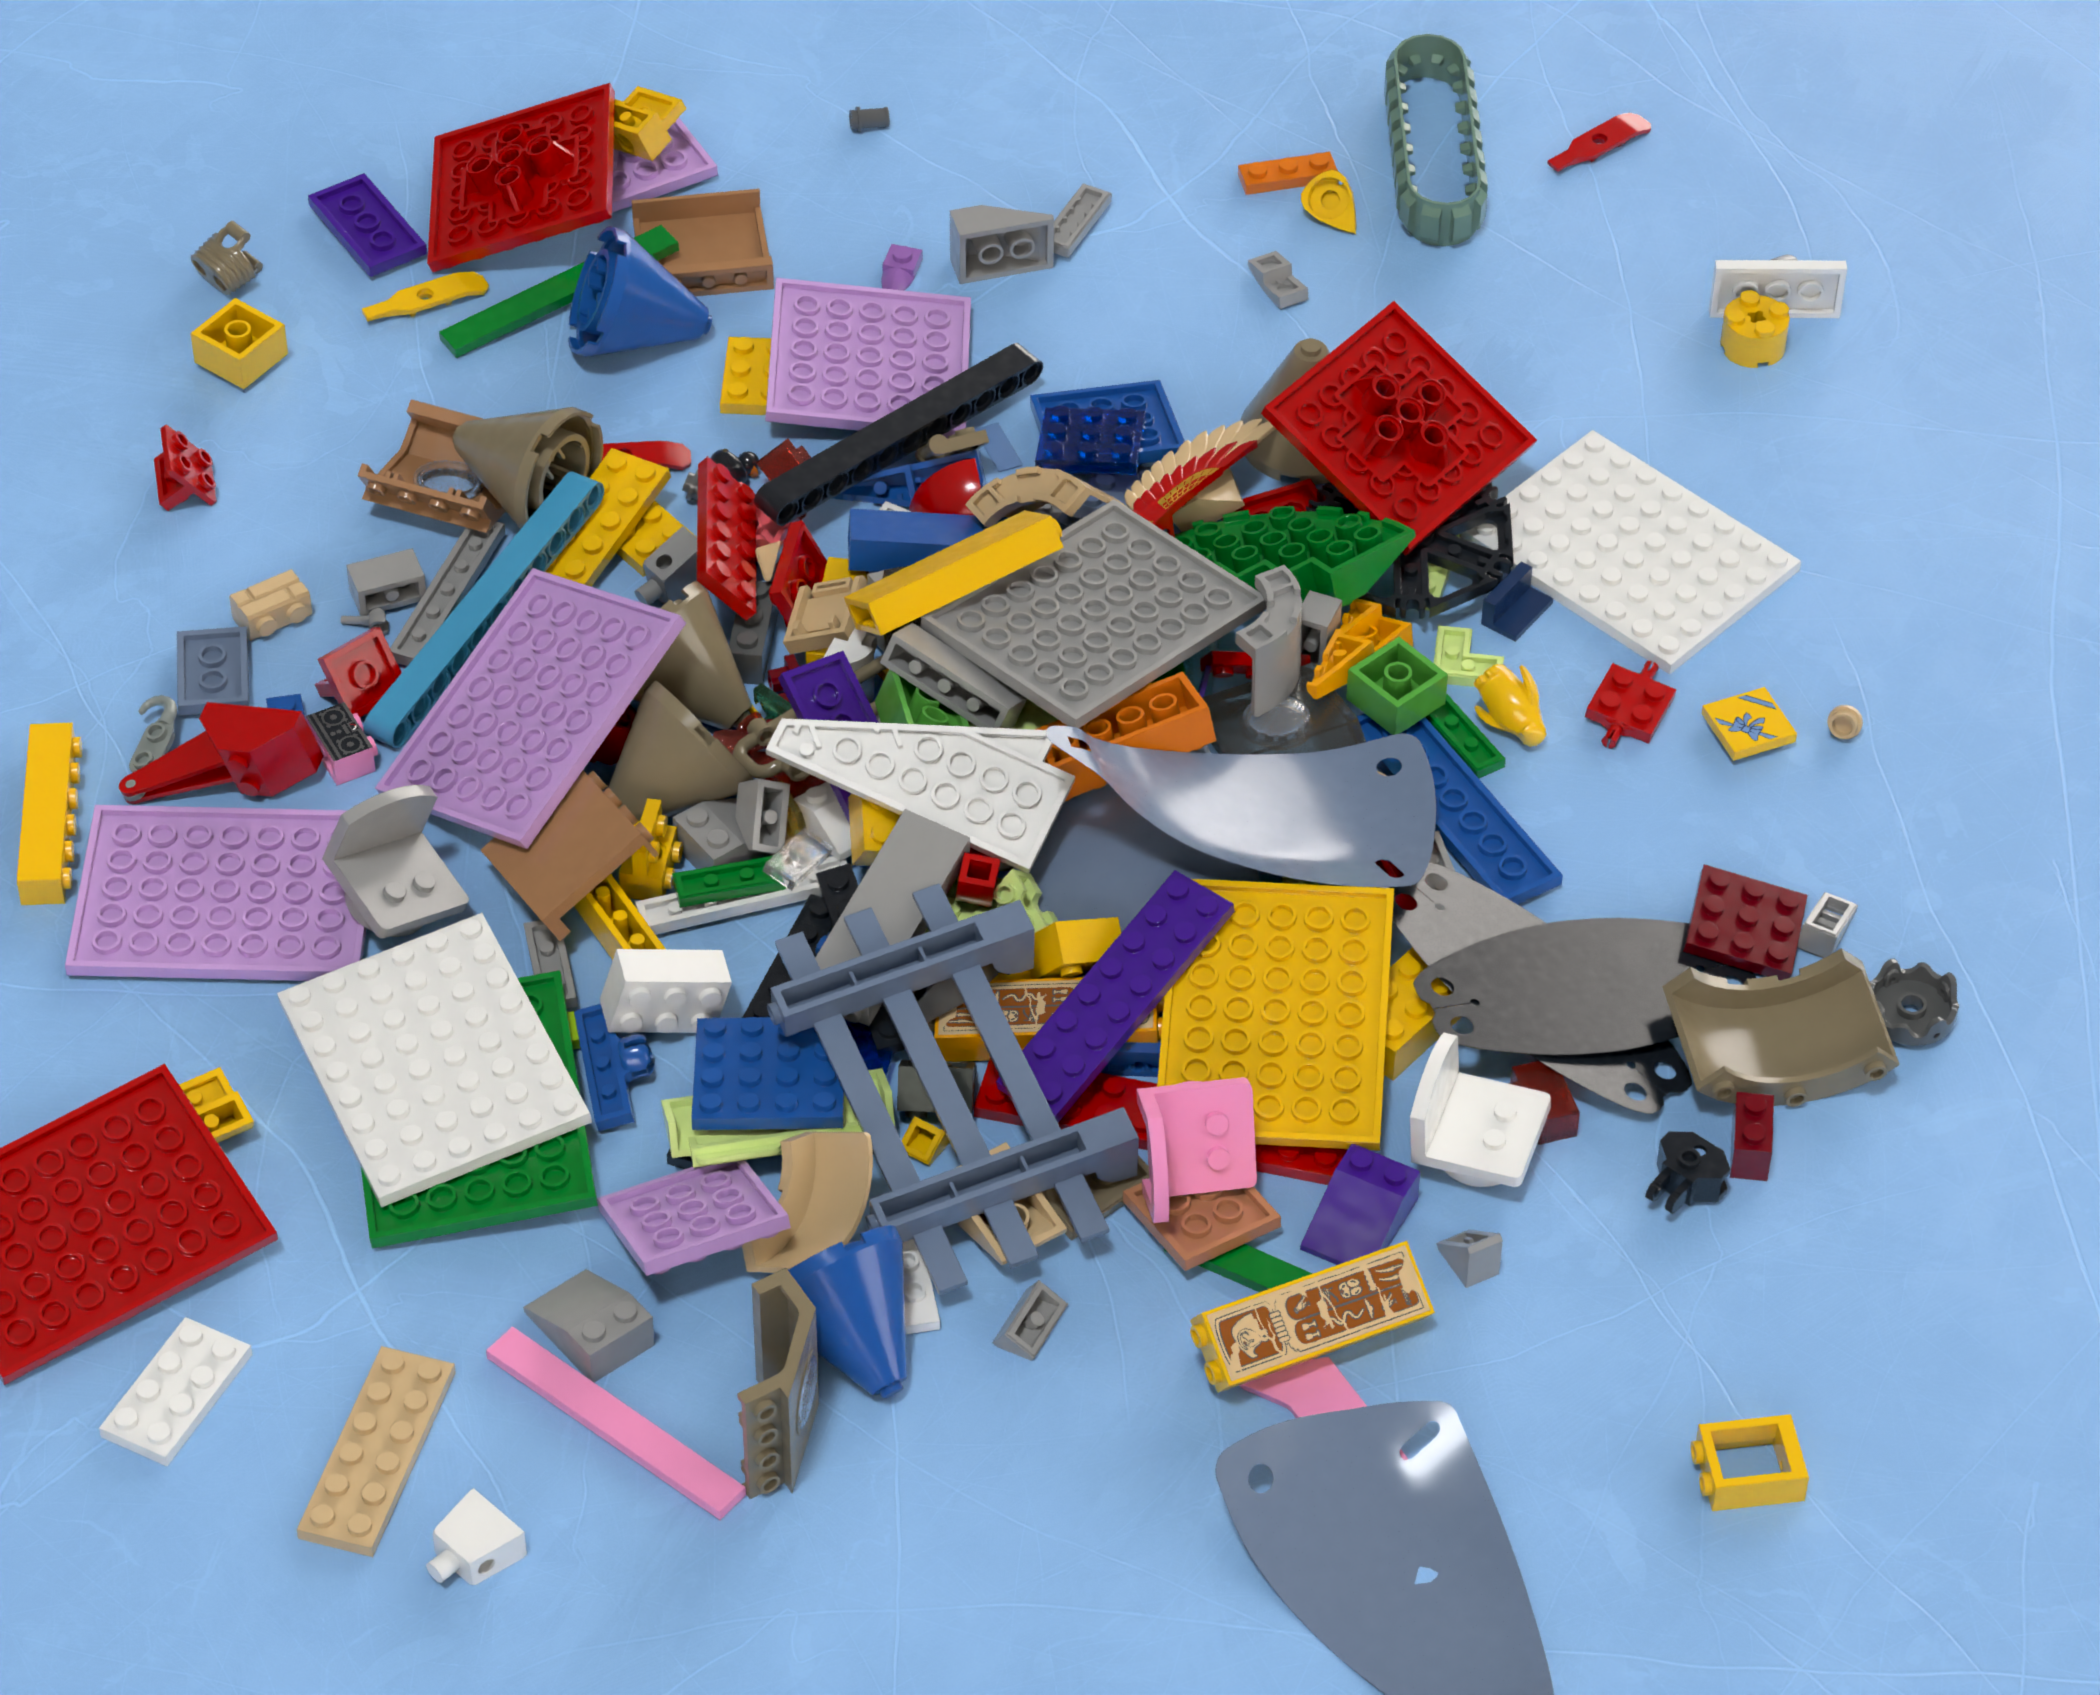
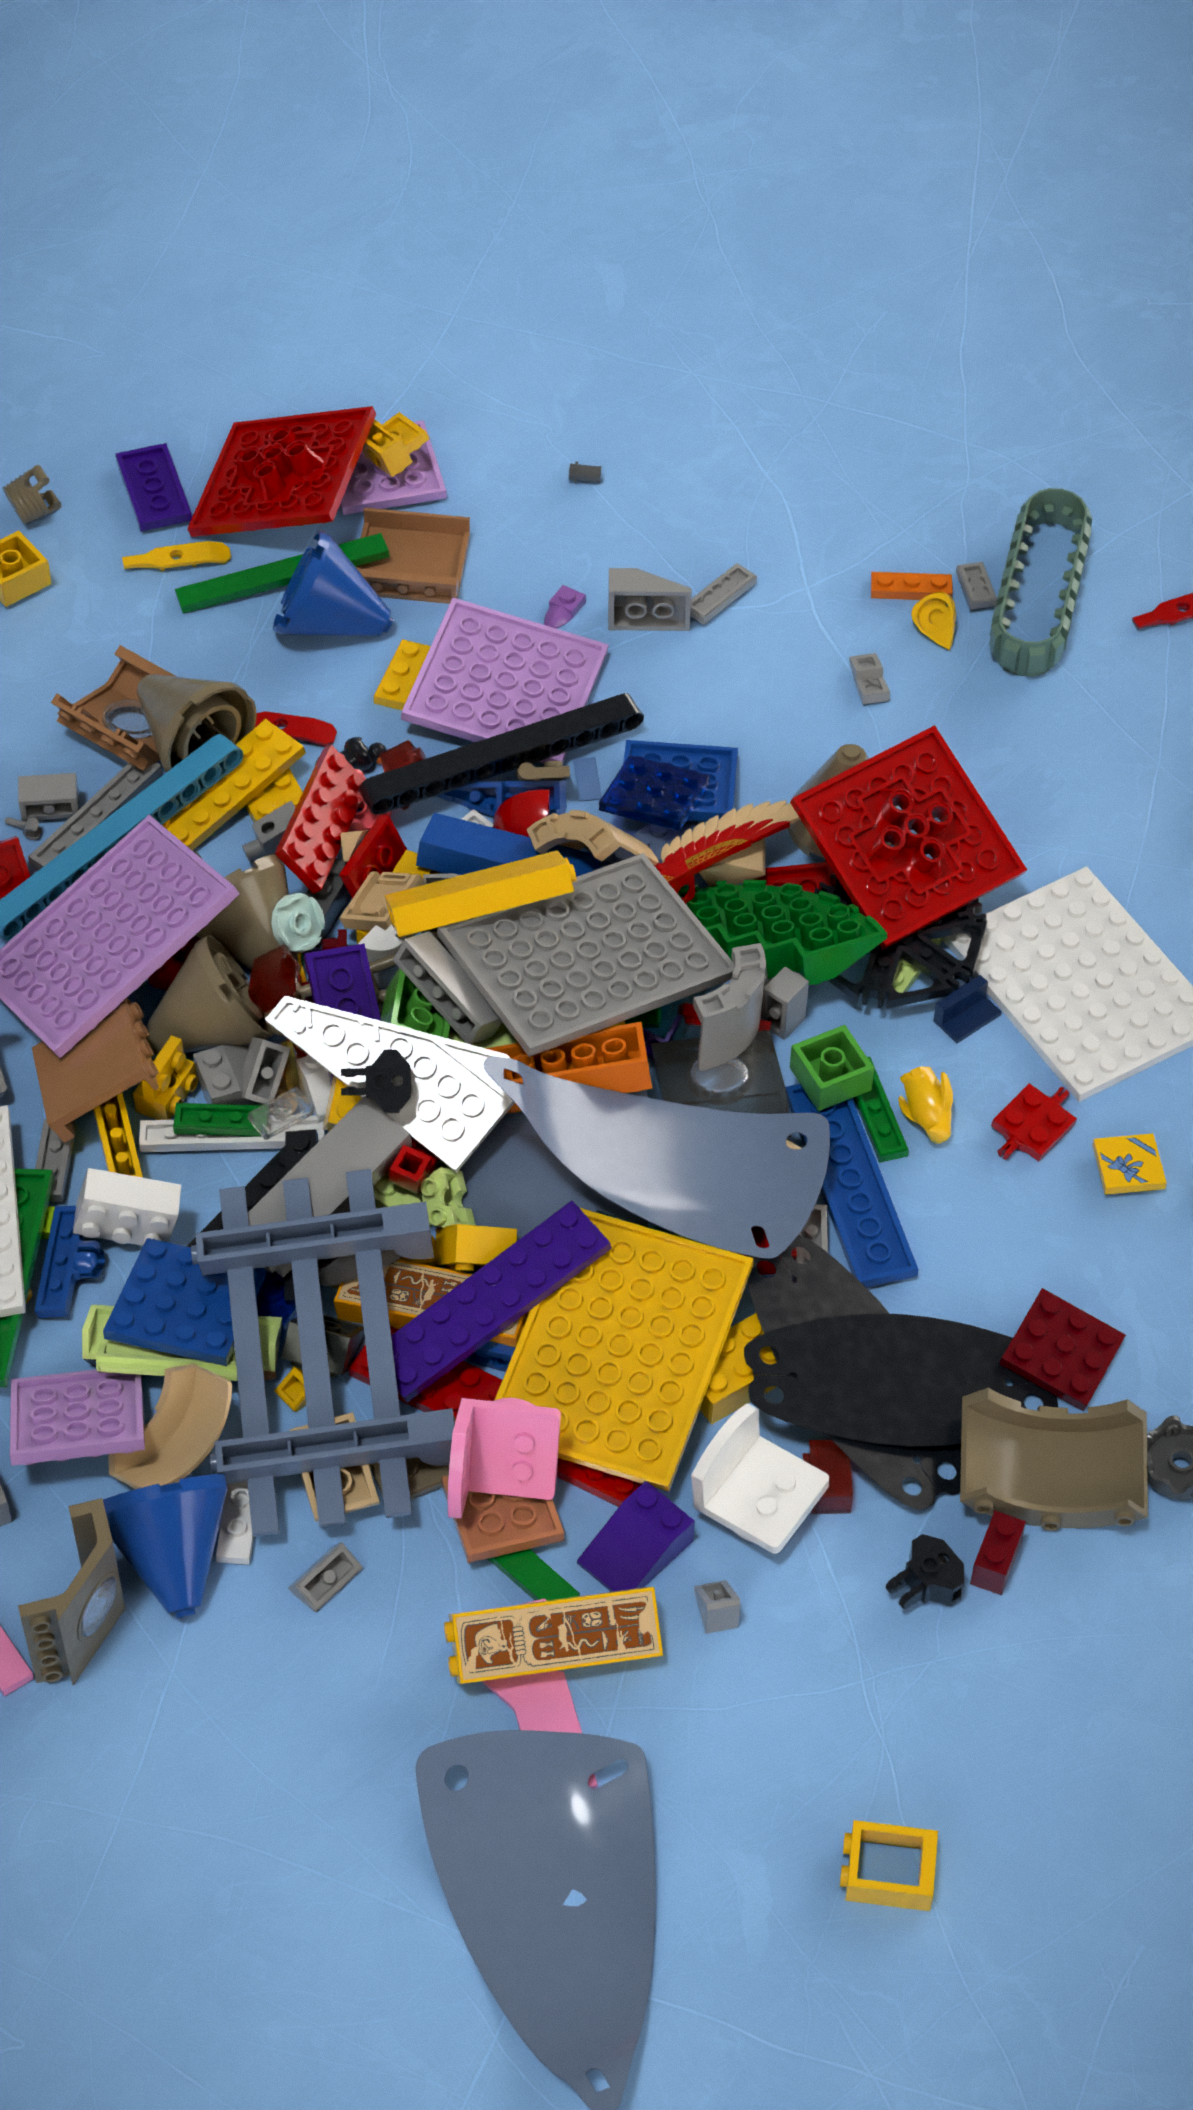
camera: 15 degrees right, 5 degrees up
(736, 718) = (273, 977): none -> clear red brick
(742, 653) = (297, 922): none -> light aqua tile
(923, 786) = (379, 1081): none -> black hinge
(1359, 636) = (820, 1013): light orange wedge -> none
(1361, 158) = (976, 585): none -> light grey plate
(1455, 659) = (898, 1051): yellowish green tile -> none
(1824, 928) = (1133, 1367): light grey slope -> none

